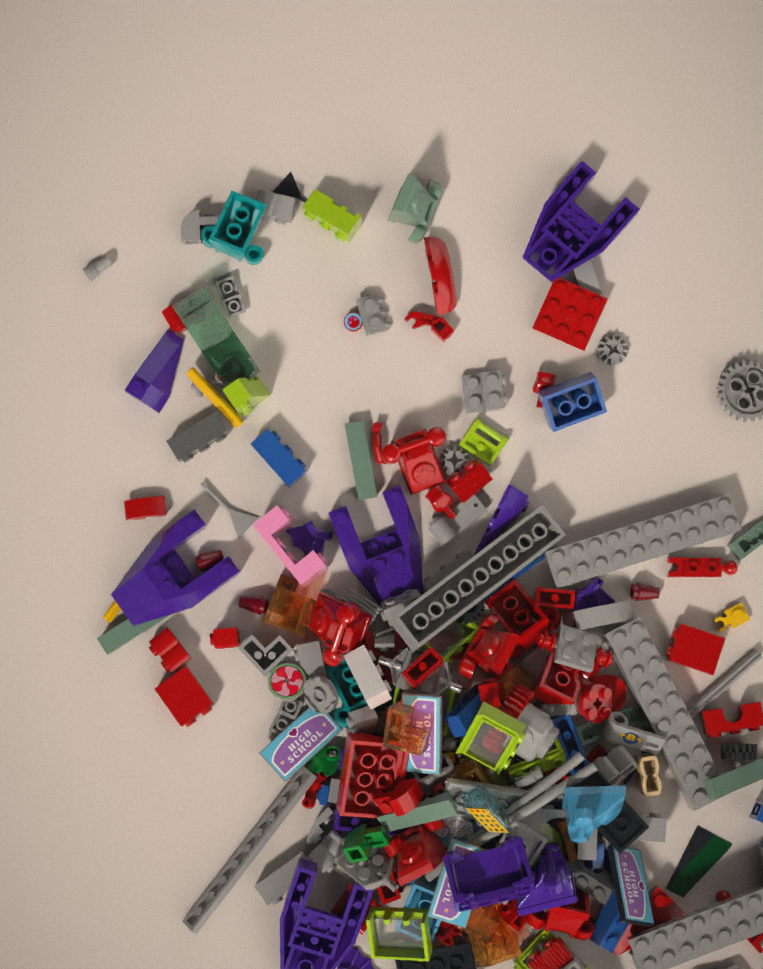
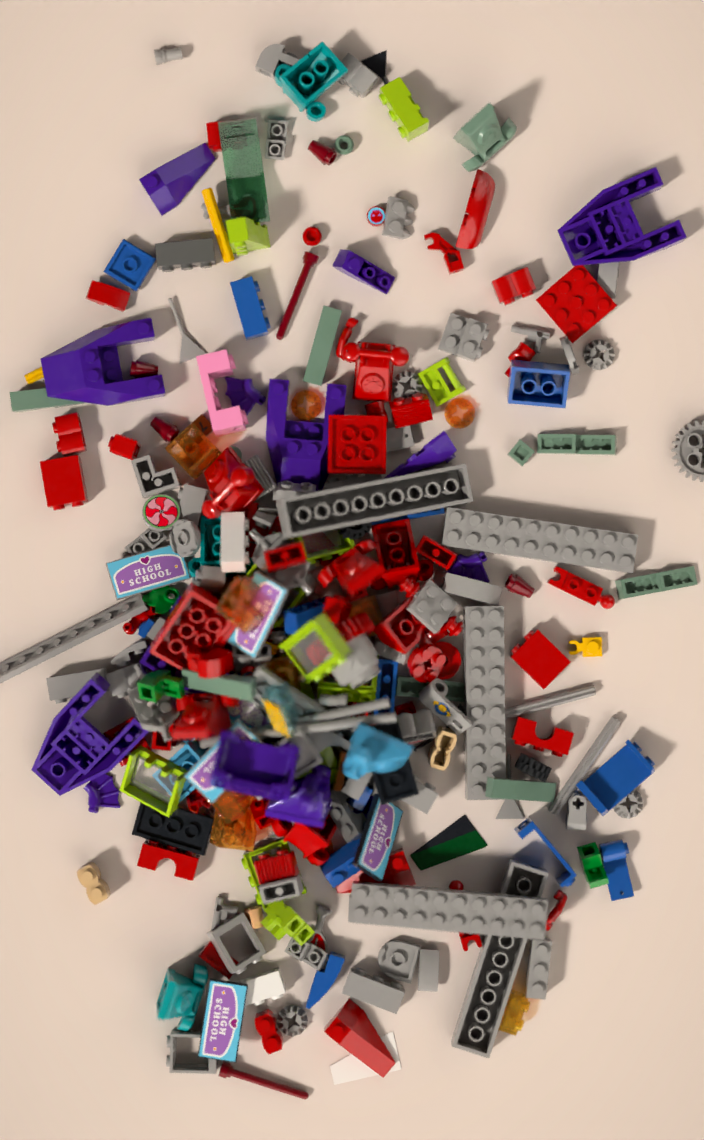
camera: 25 degrees right, 5 degrees up
(152, 471) = (130, 265): none -> blue plate
(278, 288) = (322, 152): none -> dark red cone
(293, 266) = (344, 139): none -> sand green plate
(304, 367) = (312, 236): none -> red plate
(312, 390) = (309, 261): none -> dark red piece
(364, 376) = (363, 271): none -> dark purple slope
(370, 530) = (300, 412): none -> clear orange gear
(436, 534) = (357, 444): none -> red plate
(506, 324) = (513, 285): none -> red brick
(513, 471) = (455, 421): none -> clear orange gear
(545, 361) = (532, 335): none -> light grey hose
(586, 362) = (569, 355): none -> light grey tile
(586, 471) = (521, 452): none -> sand green plate
(632, 439) = (577, 444): none -> sand green slope
(735, 799) = (509, 808): none -> light grey piece

